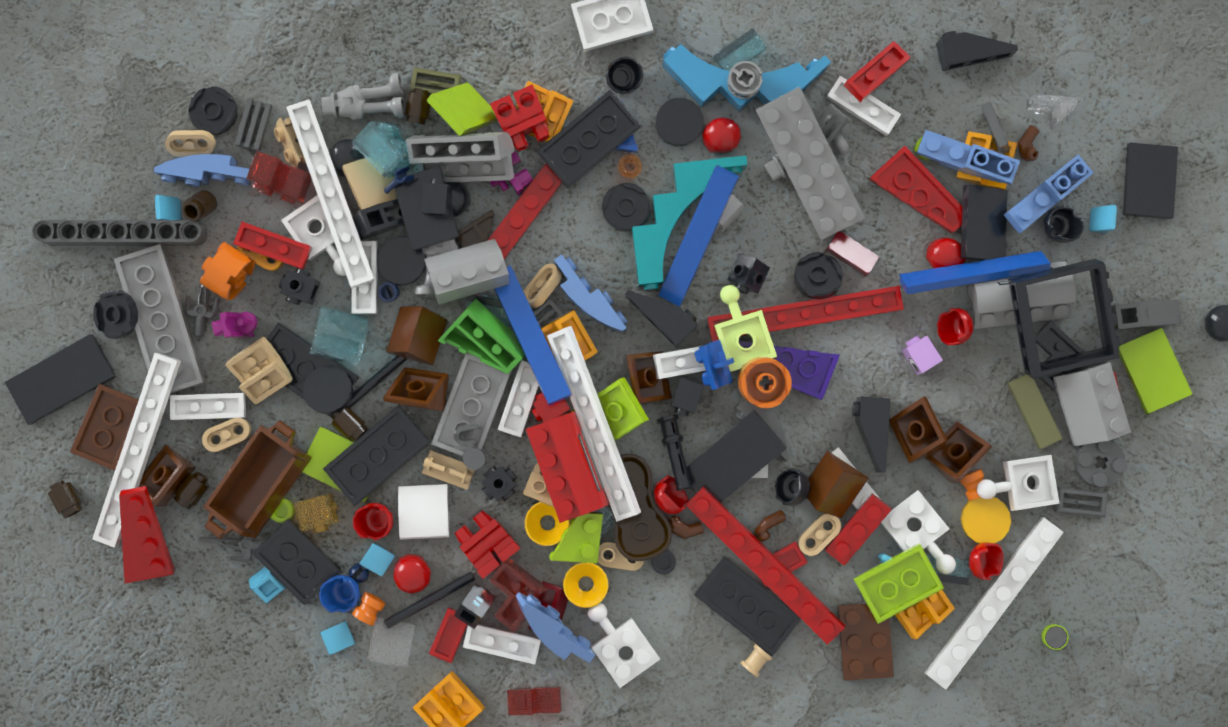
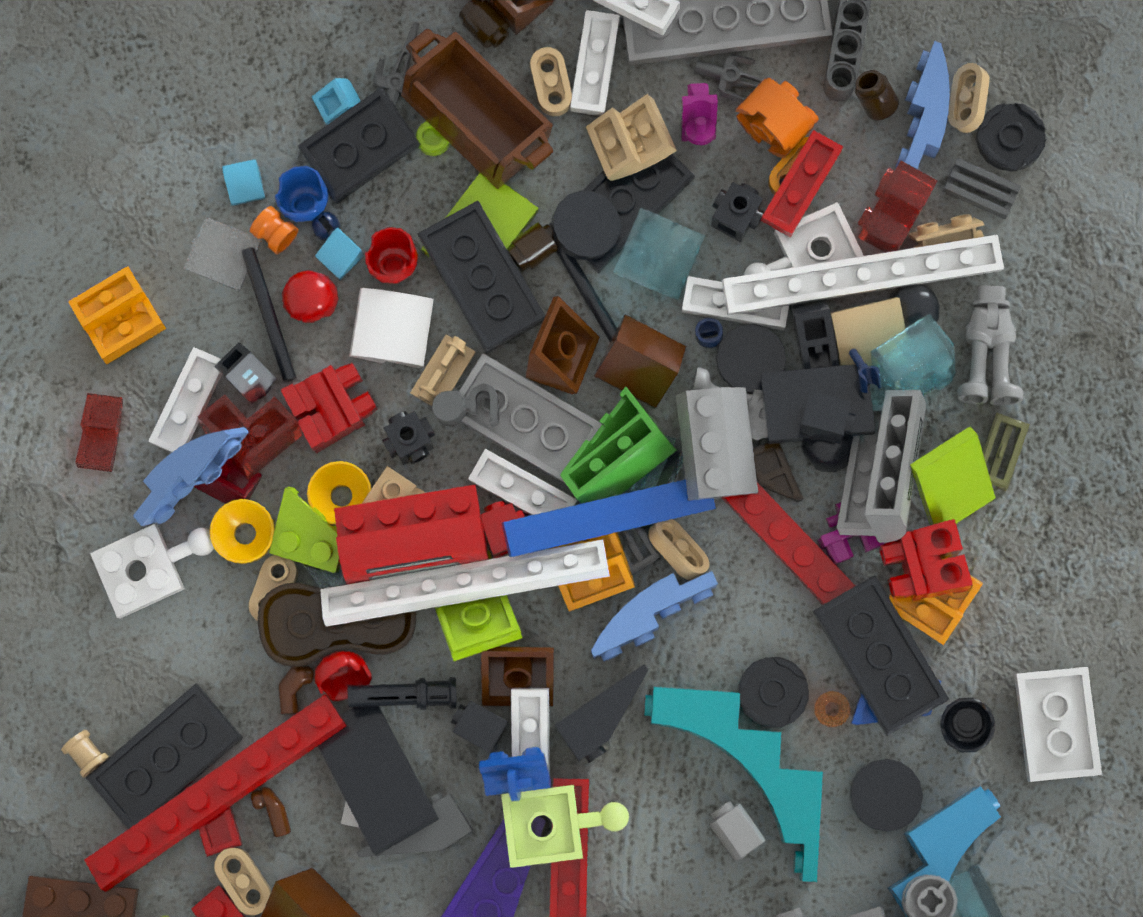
camera: 105 degrees right, 5 degrees down
(167, 208) = (880, 53): medium azure slope -> none
(316, 513) = (418, 182): clear yellow head -> none
(417, 106) = (968, 414): dark brown brick -> none
(448, 637) = (212, 330): red tile -> none
(664, 563) = (249, 649): black tile -> none
(698, 235) = (708, 785): blue tile -> none
(721, 135) = (855, 854): red hair -> none
(748, 274) = (640, 850): black brick -> none
(774, 391) = (458, 853): orange brick -> none
(792, 487) = (318, 854): black hair -> none

